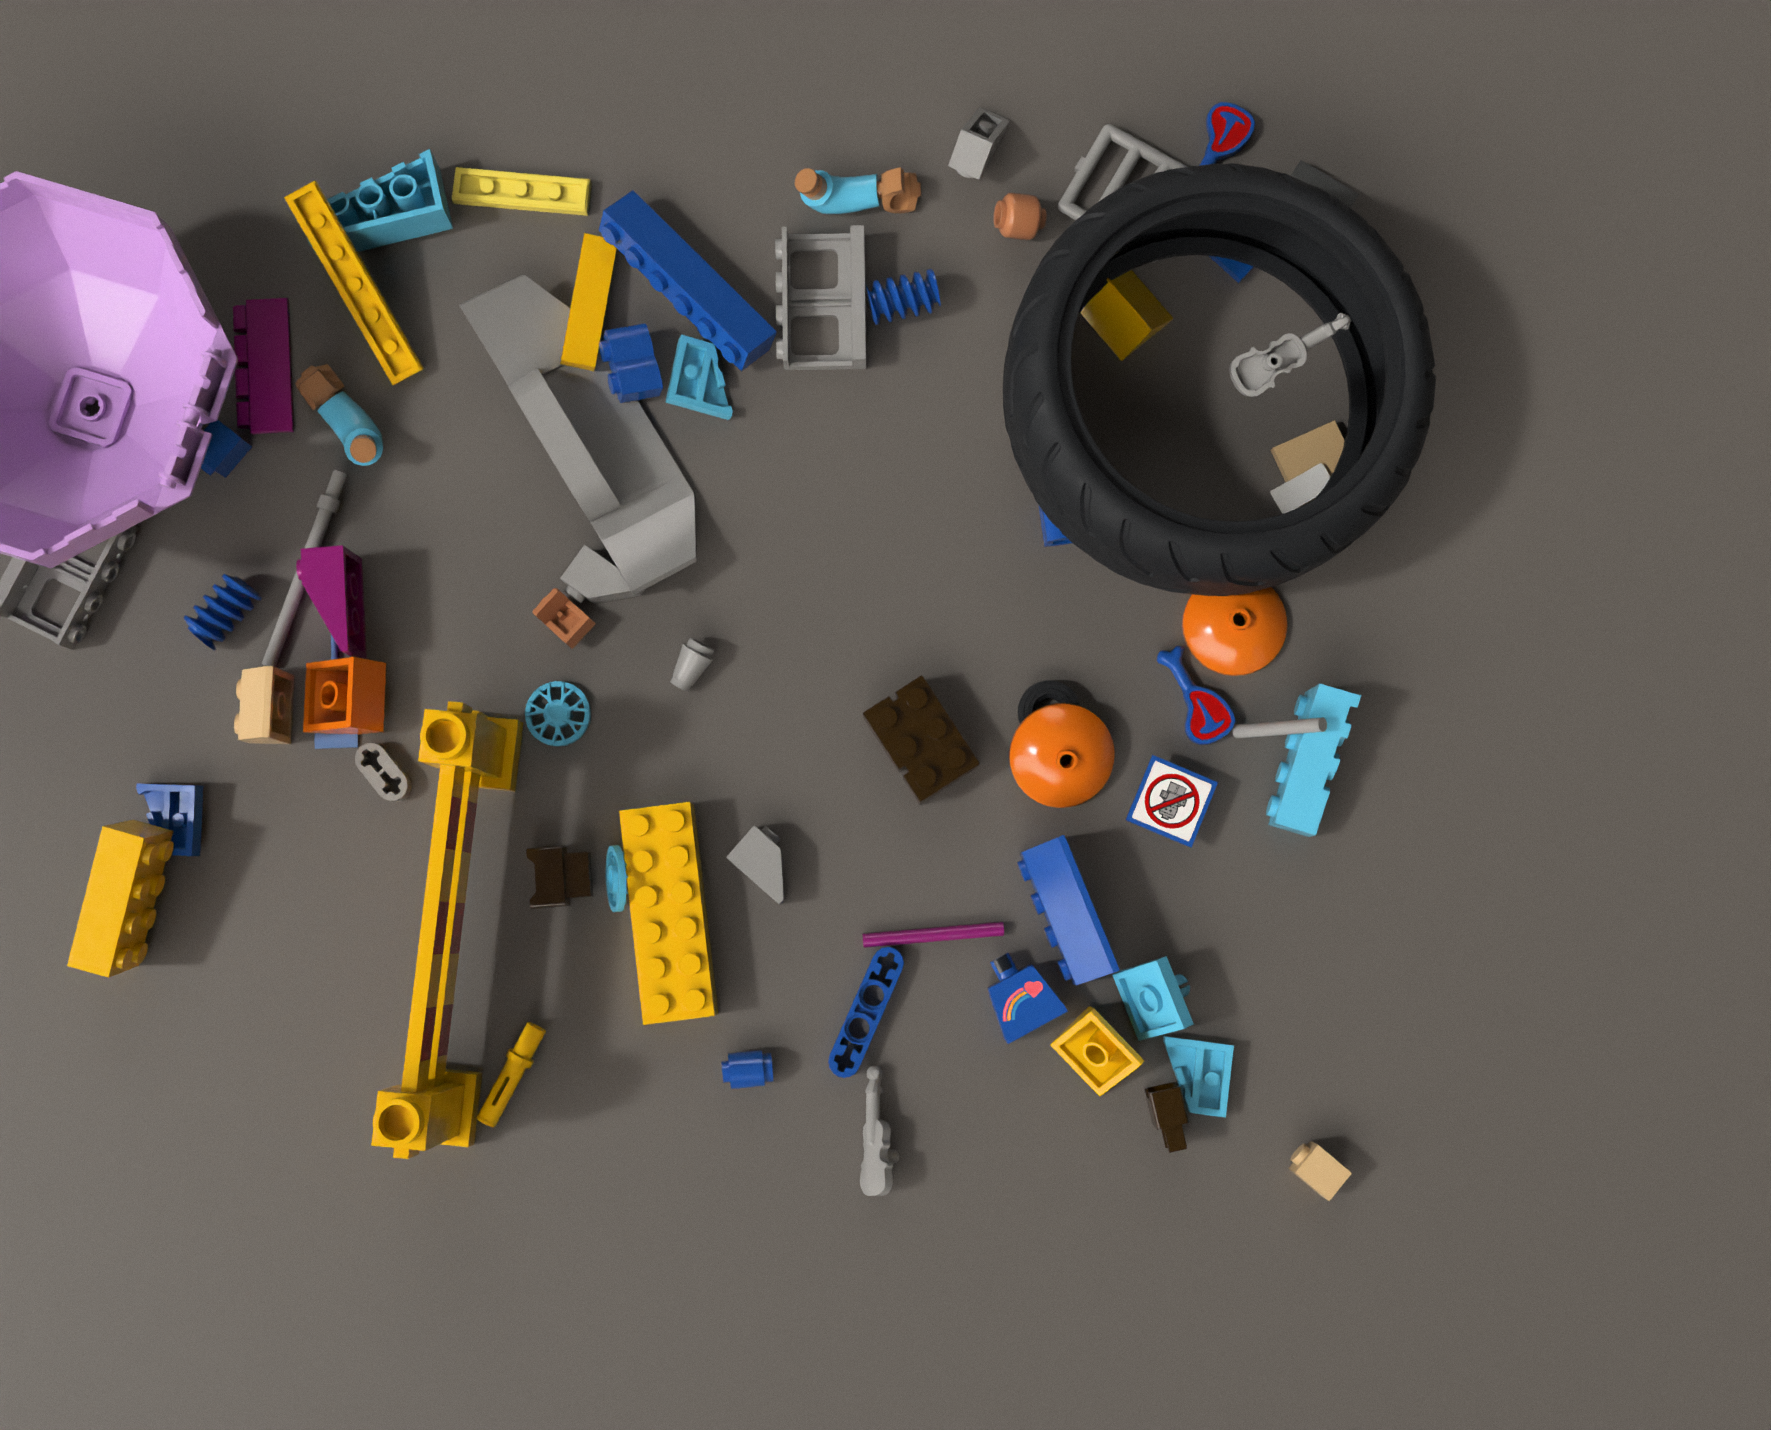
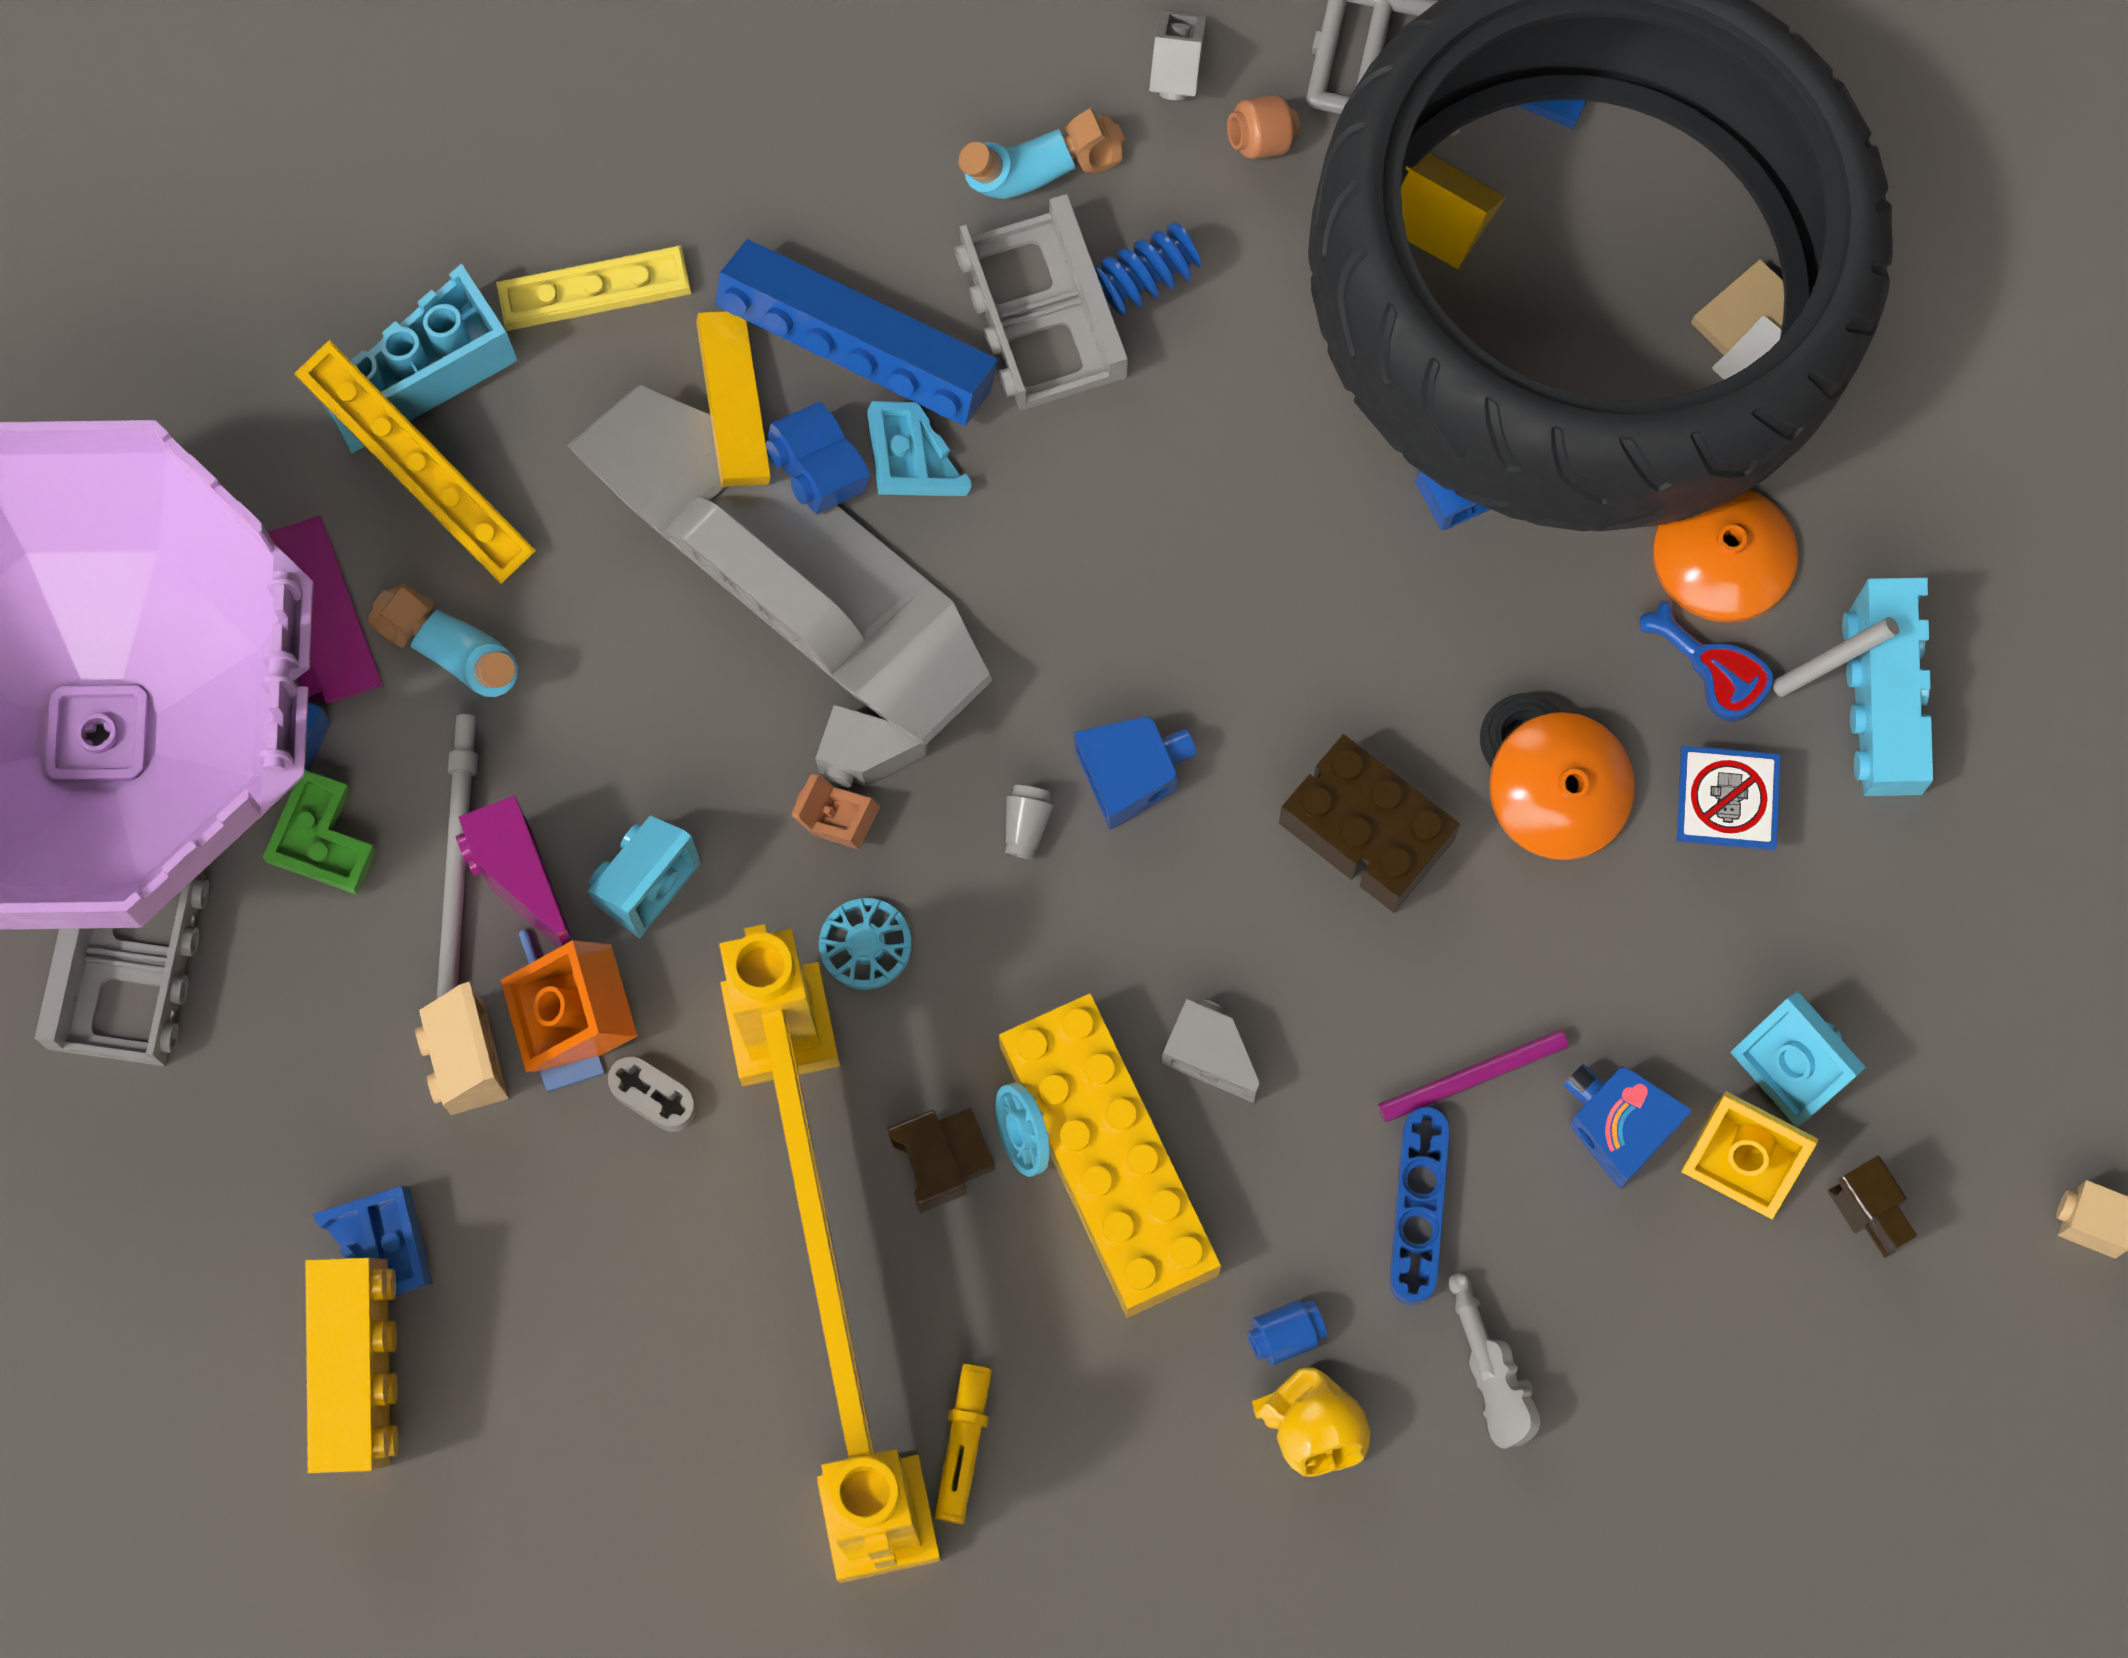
camera: 20 degrees left, 10 degrees down
(208, 525) = (306, 837): none -> bright green plate
(221, 609) = (360, 942): blue piece -> none
(421, 622) = (644, 874): none -> medium azure slope
(746, 1136) = (1316, 1423): none -> yellow piece
(774, 648) = (1130, 765): none -> blue torso
(1068, 910) = (1644, 980): slope -> none
(1202, 1073) = (1903, 1136): medium azure wing -> none
(1257, 369) = (1654, 197): light grey piece -> none

